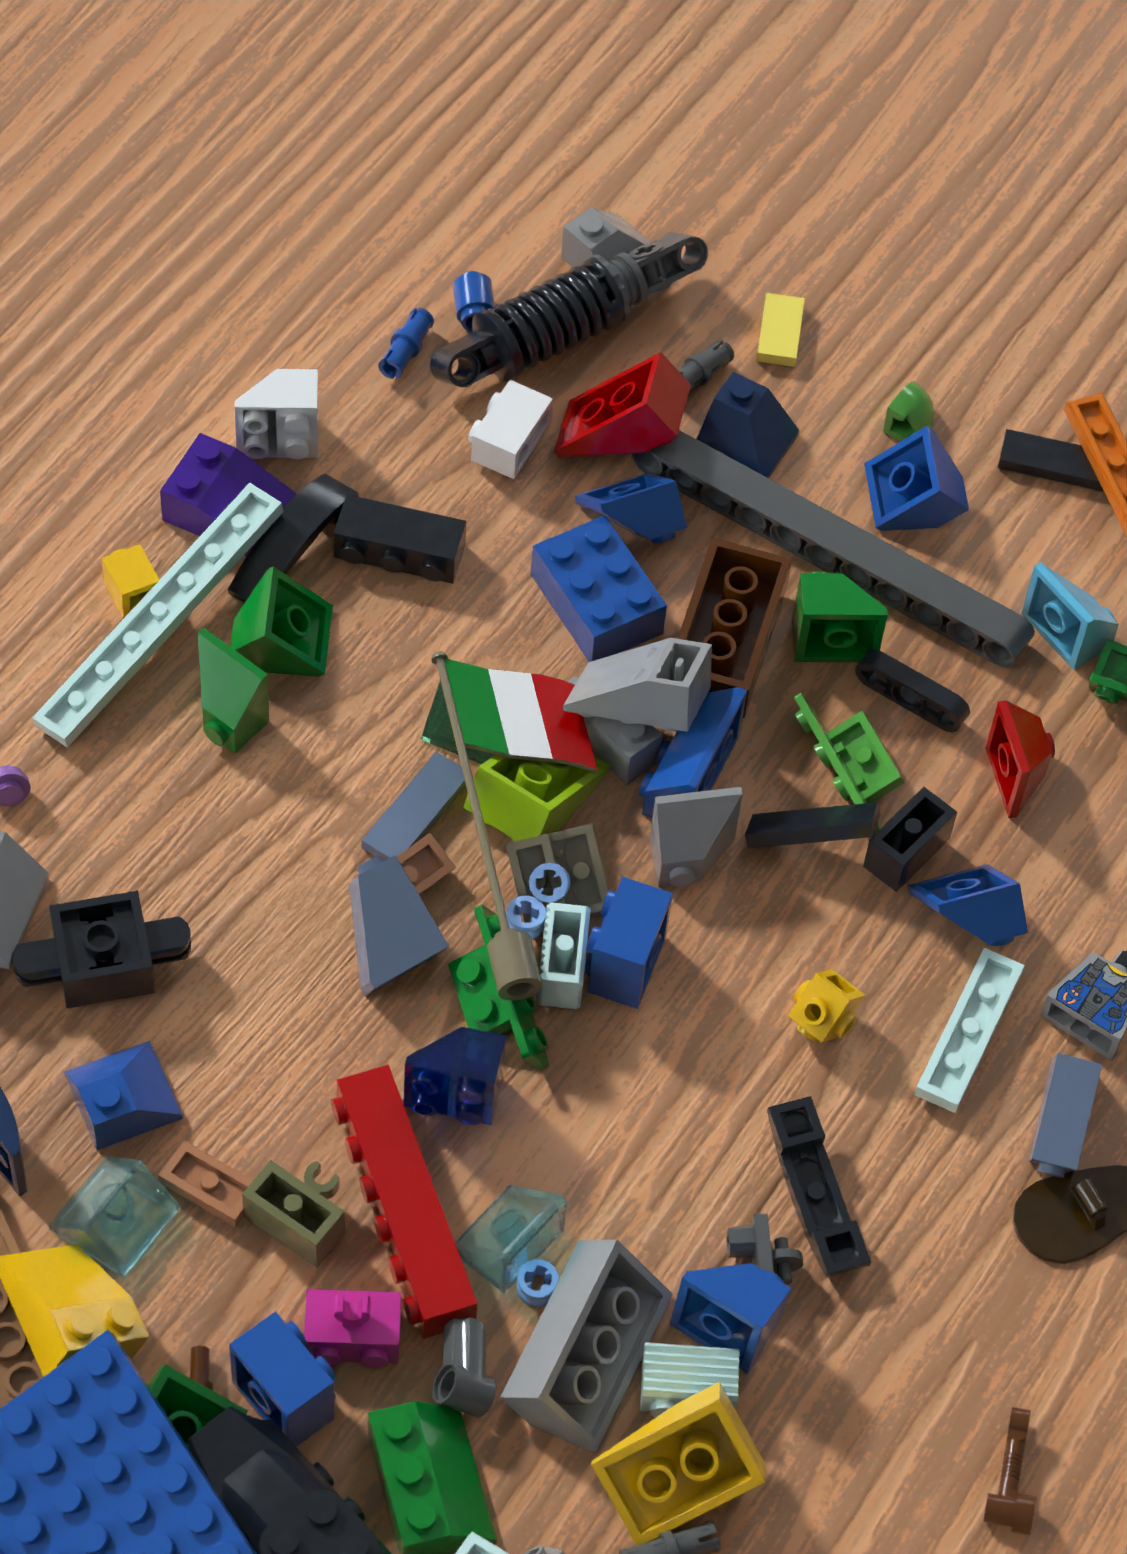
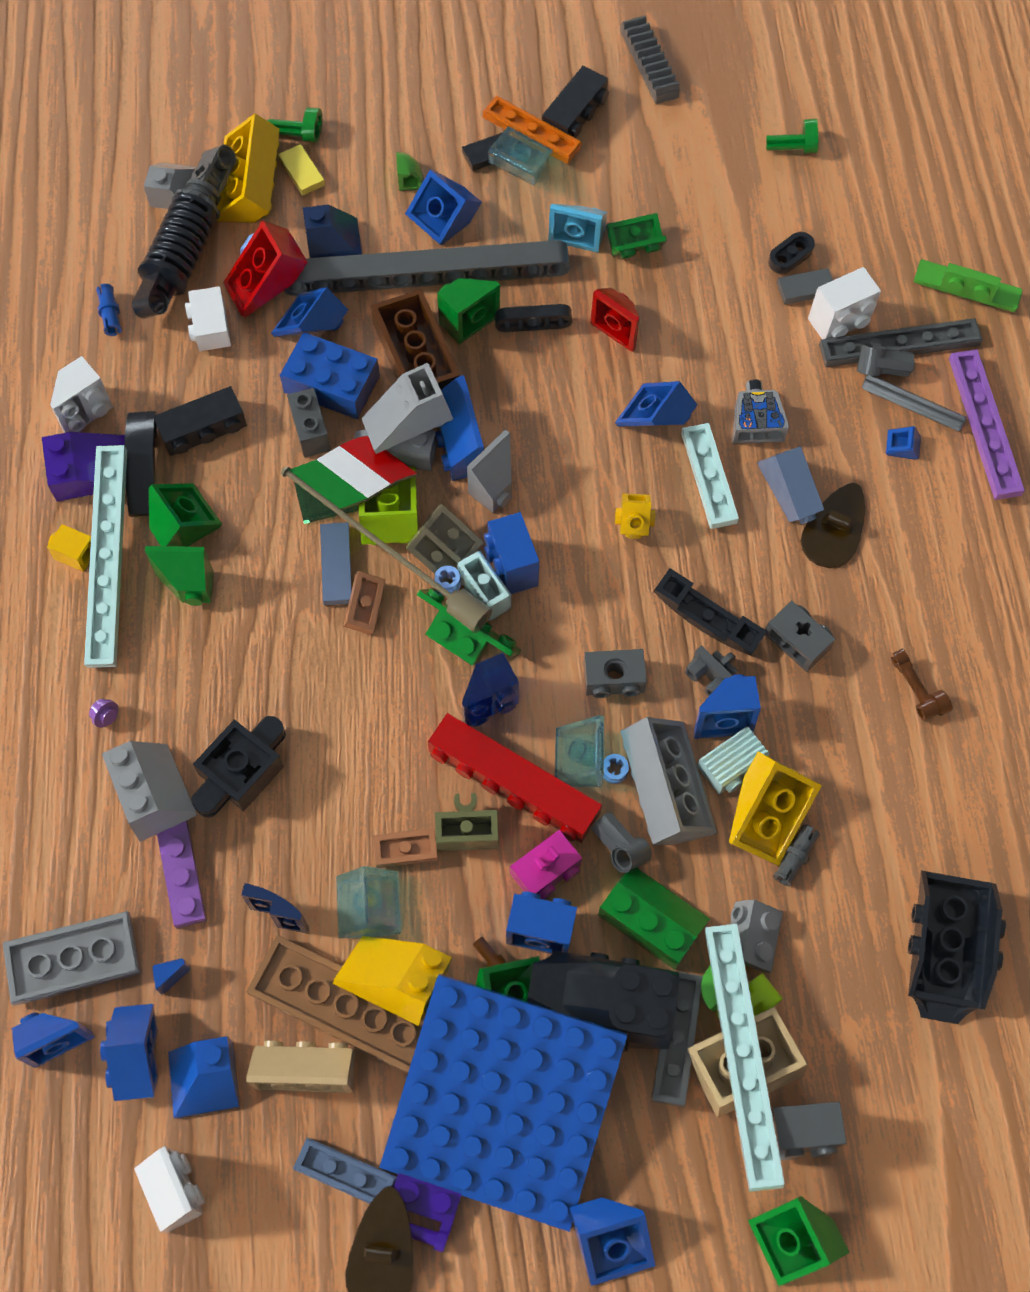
camera: 35 degrees left, 10 degrees up
(123, 1095) = (315, 835): blue slope -> none
(390, 924) = (381, 636): sand blue slope -> none
(471, 295) = (124, 260): blue brick -> none
(524, 625) = (308, 422): none -> dark grey brick
(540, 872) = (455, 553): light blue bush -> none
(625, 1149) = (626, 662): none -> dark grey brick
(701, 367) = (280, 210): dark grey pin -> none
(705, 301) = (251, 179): none -> yellow slope
(812, 825) = (549, 424): black tile -> none
(829, 286) = (308, 129): none -> green piece
(855, 753) = (538, 372): bright green bracket -> none
(906, 1323) = (785, 632): none -> dark grey brick
(909, 839) = (601, 397): black brick -> none
(1068, 483) = (519, 155): none -> clear light blue slope

